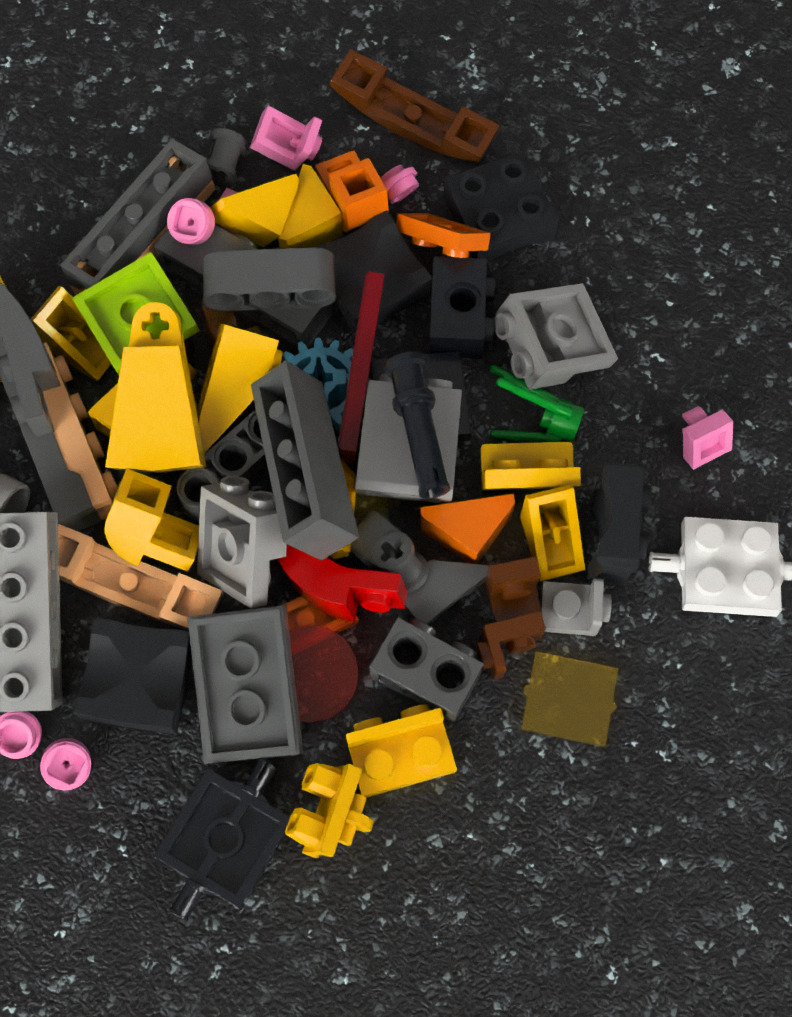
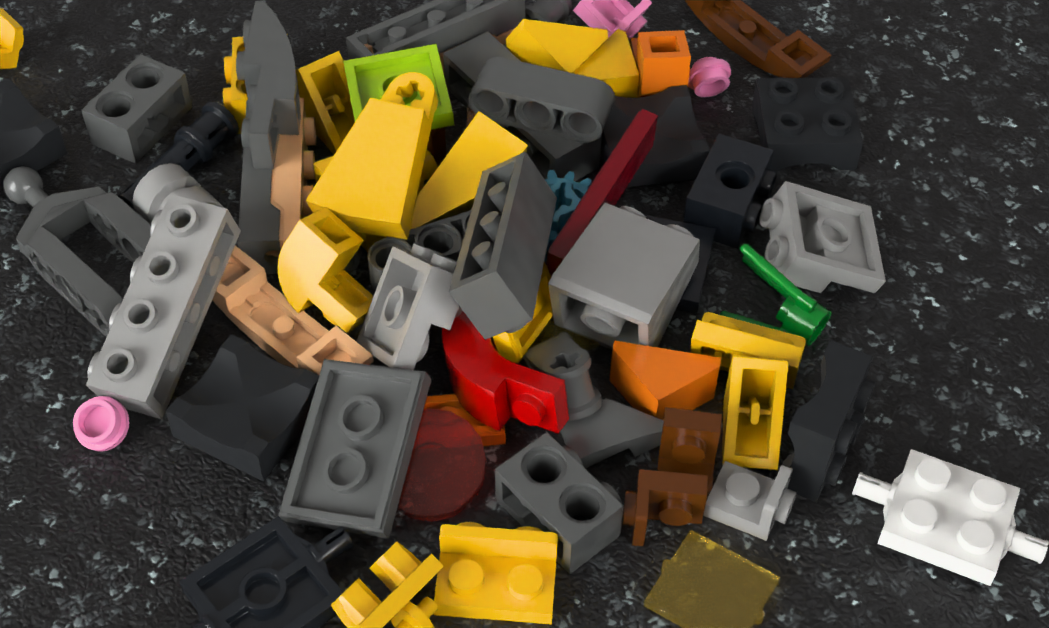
camera: 20 degrees right, 20 degrees down
(66, 764) = (135, 467): bright pink tile -> none
(191, 221) = (487, 36): bright pink tile -> none
(414, 404) = (641, 225): black pin -> none
(433, 230) = (736, 120): orange plate -> none
(706, 436) = (962, 380): bright pink tile -> none

